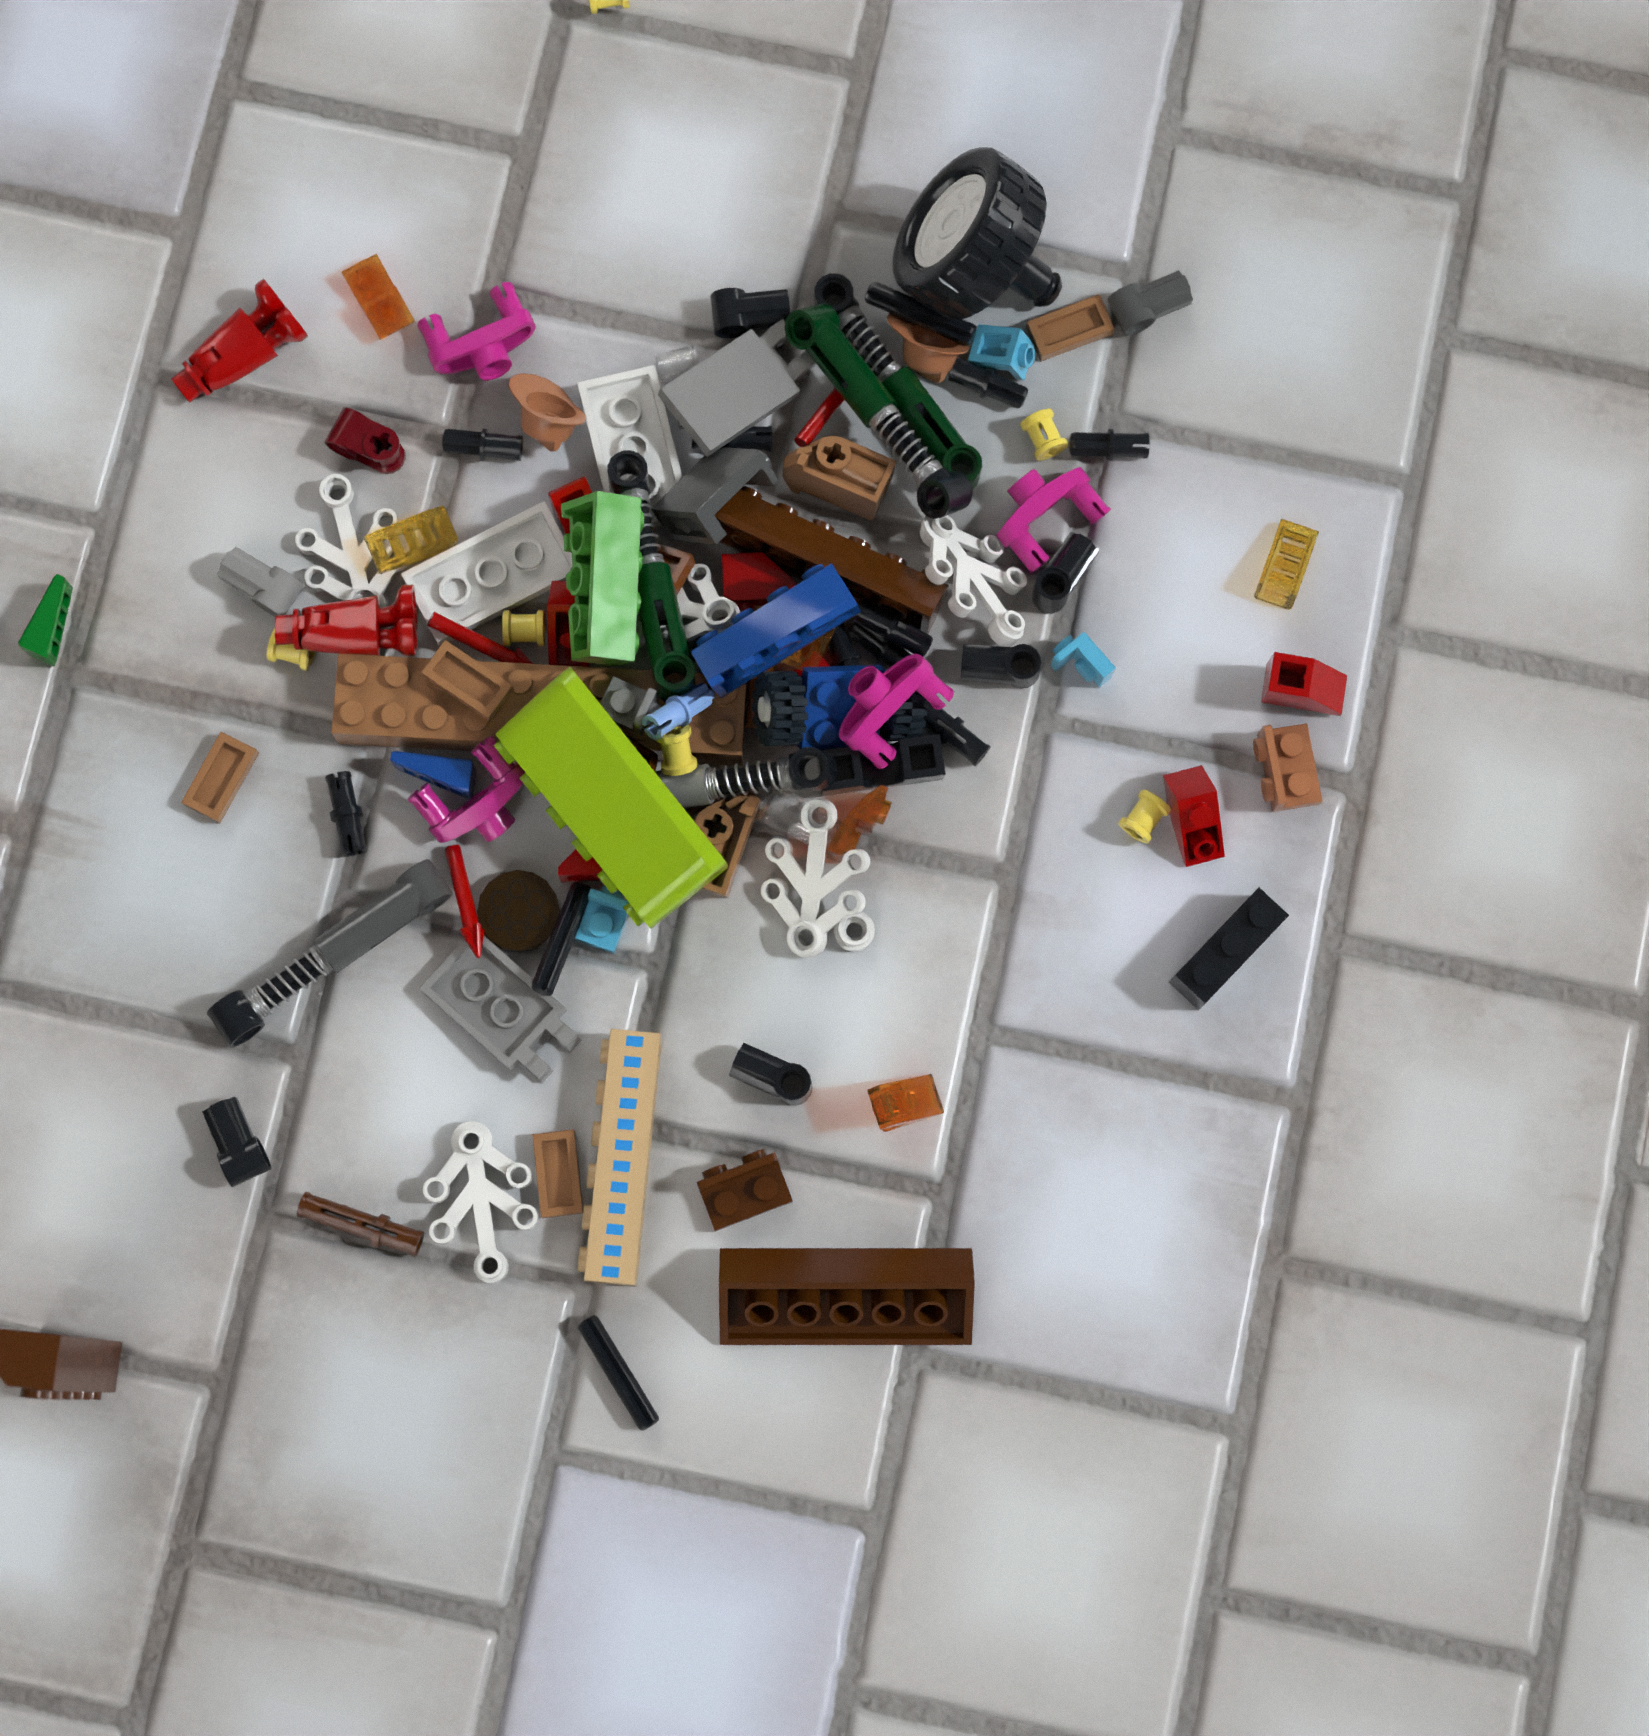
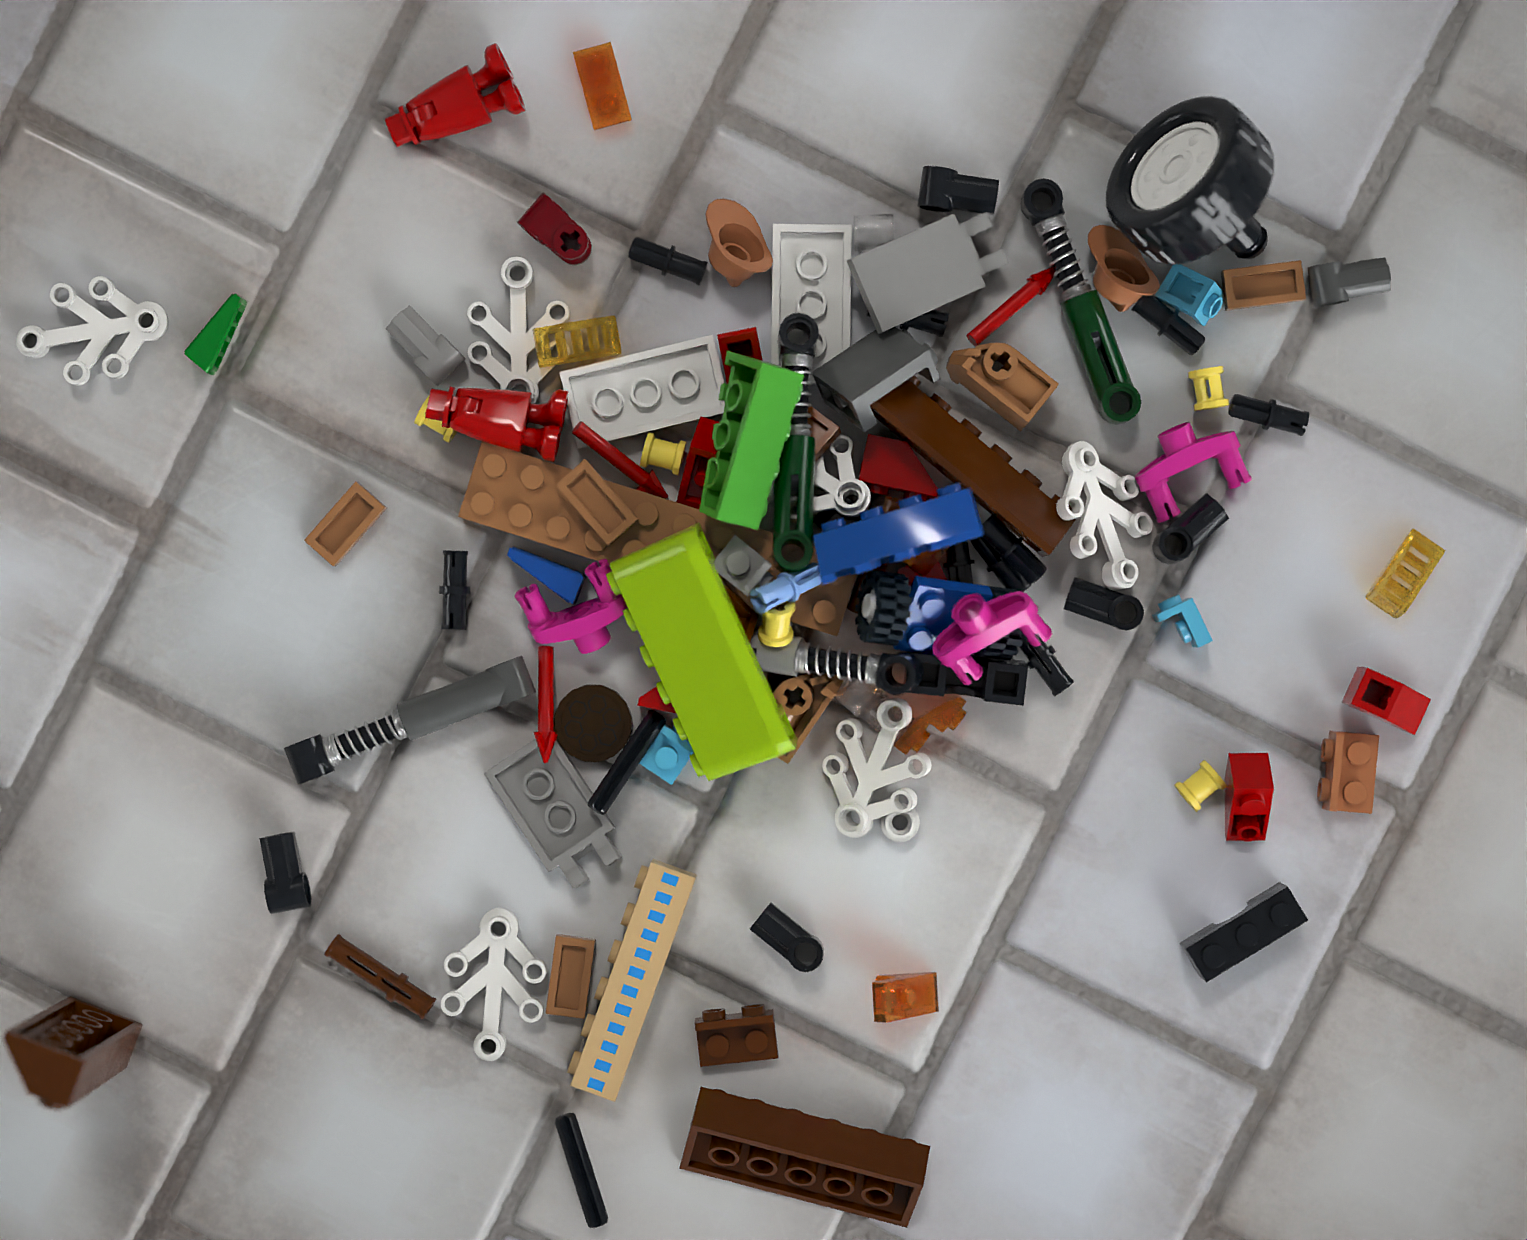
camera: 25 degrees right, 10 degrees up
(485, 347) = (692, 165): dark pink connector -> none
(819, 333) = (1017, 238): piece -> none
(916, 313) = (1099, 221): black axle -> none

